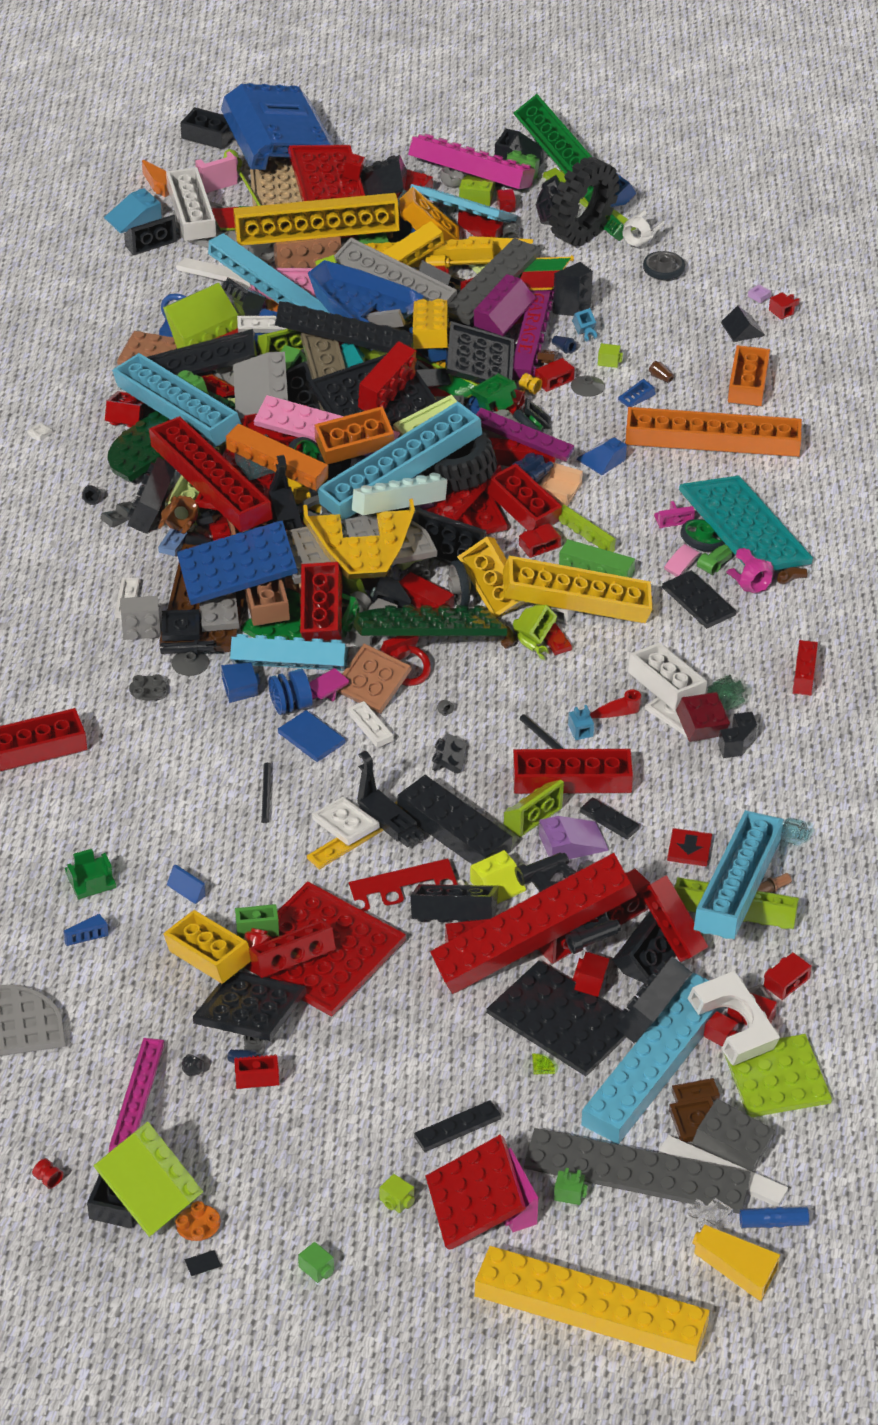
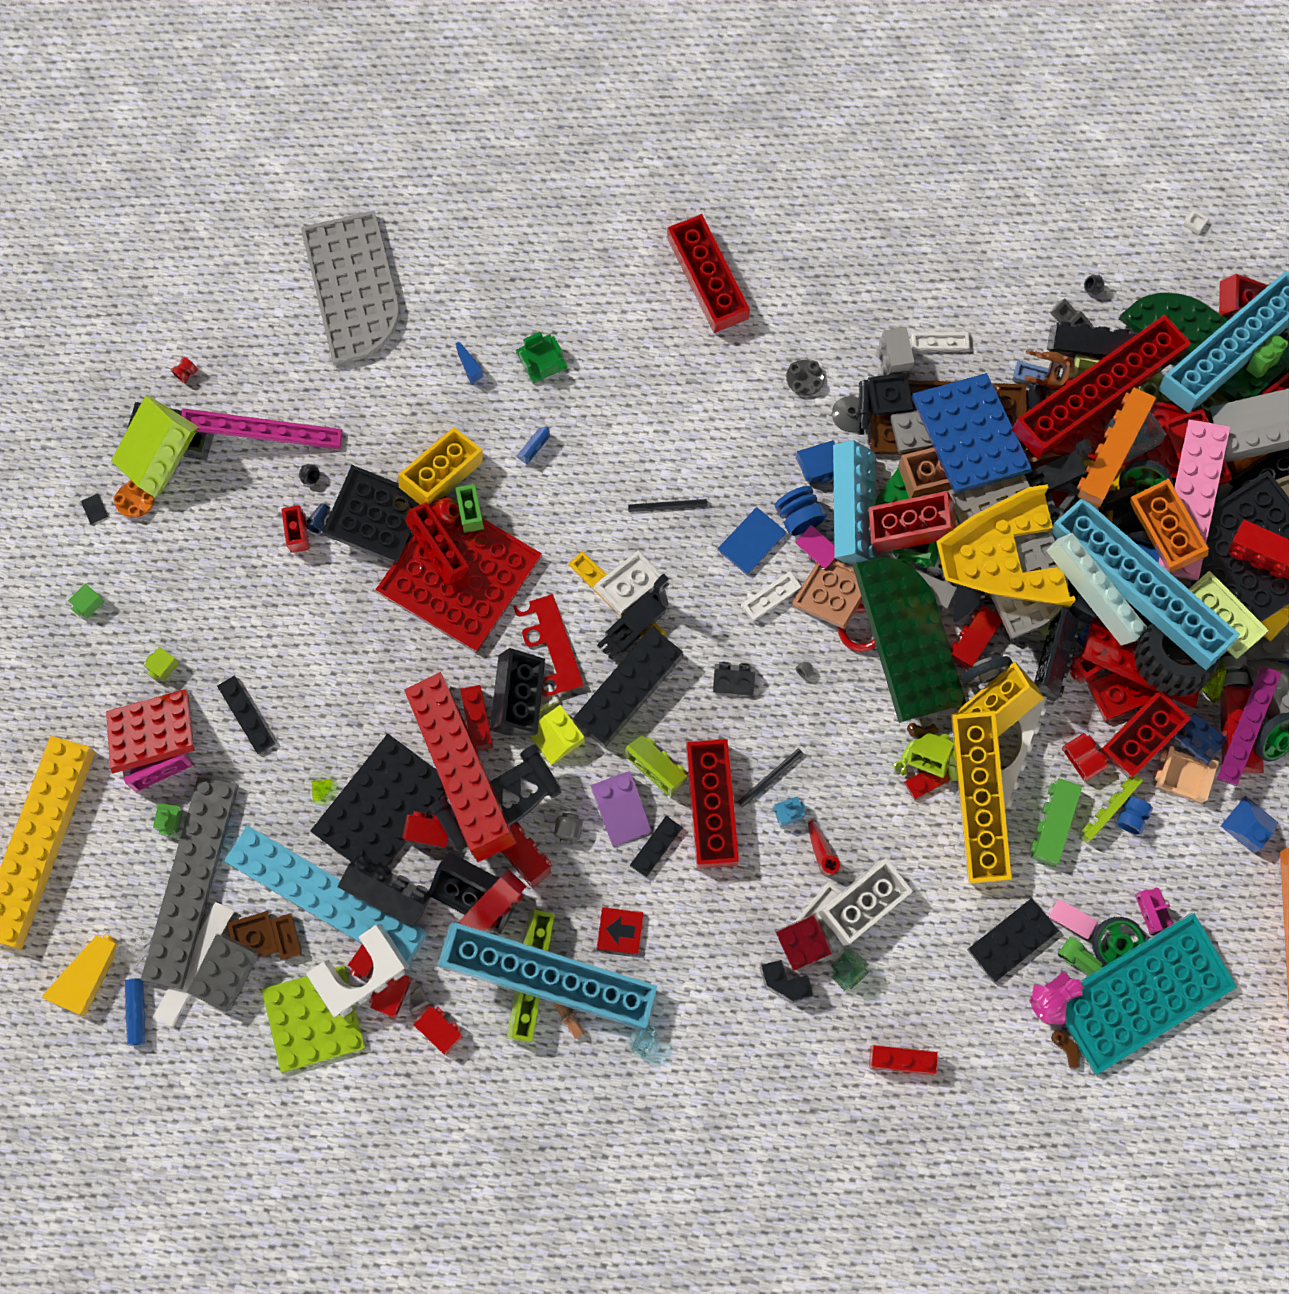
camera: 85 degrees right, 30 degrees up
(597, 515) = (1135, 813): none -> blue wheel

